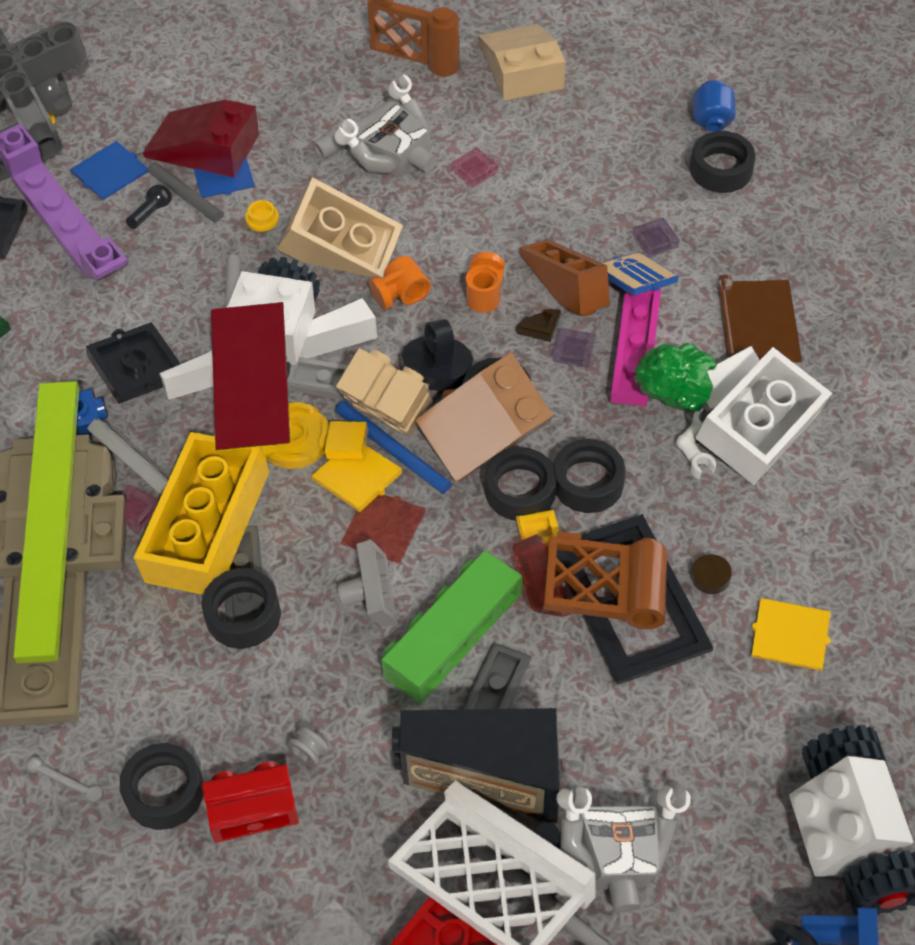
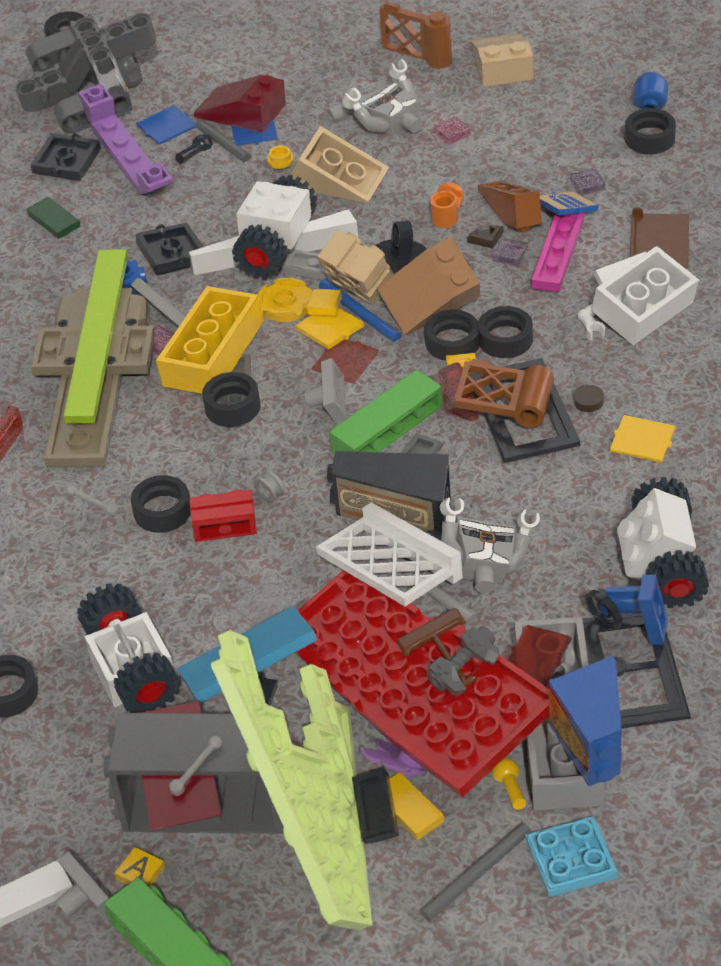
camera: 10 degrees right, 10 degrees down
(250, 376) = (254, 247): dark red piece -> none
(401, 280) = (381, 202): orange piece -> none
(676, 376) = (581, 266): green hair -> none

